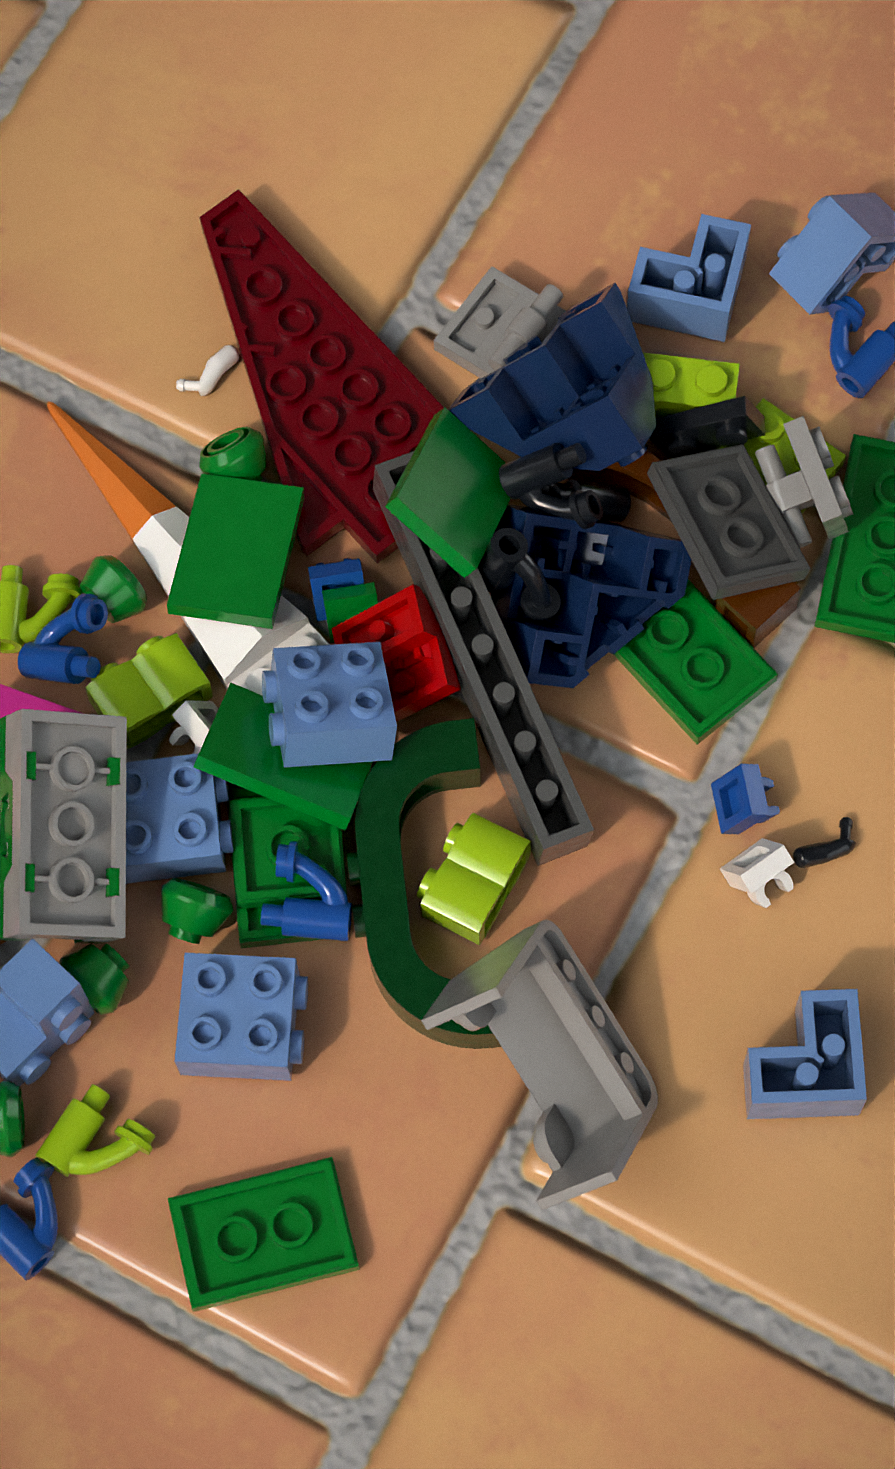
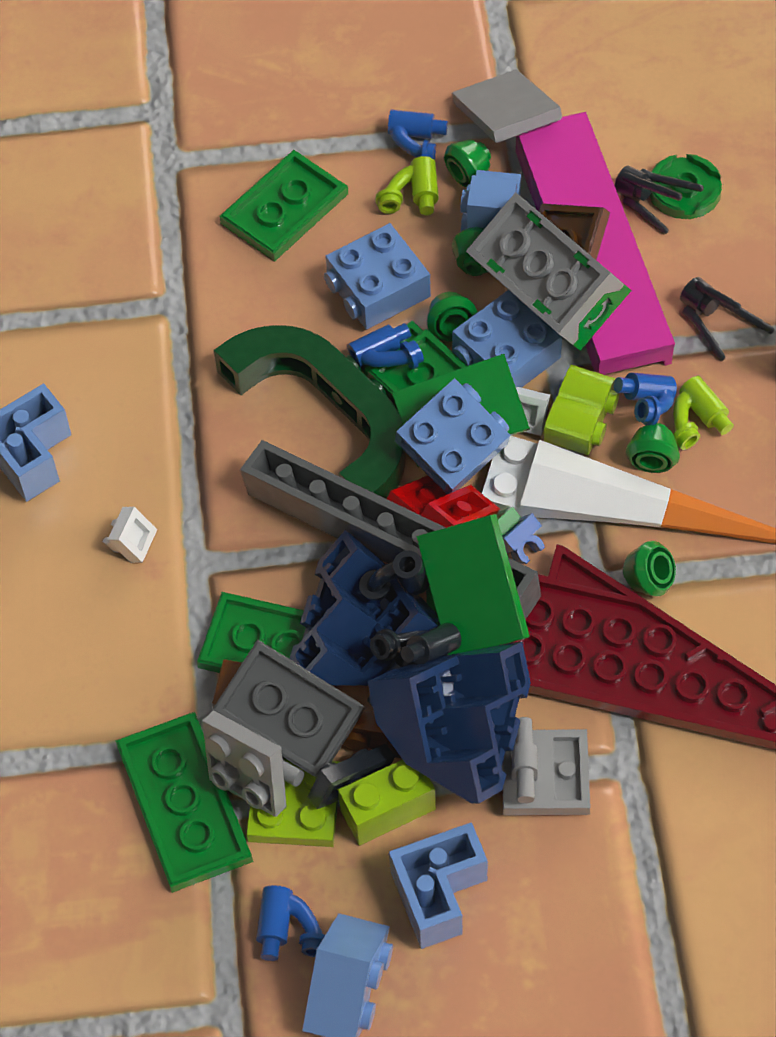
camera: 145 degrees right, 10 degrees down
(214, 369) = (718, 629): white piece -> none
(236, 551) = (592, 502): green tile -> none
(474, 877) = (299, 423): lime brick -> none
(566, 1052) = (144, 358): light grey windscreen -> none
(742, 799) = (168, 568): blue tile -> none
(826, 851) = (96, 579): black piece -> none

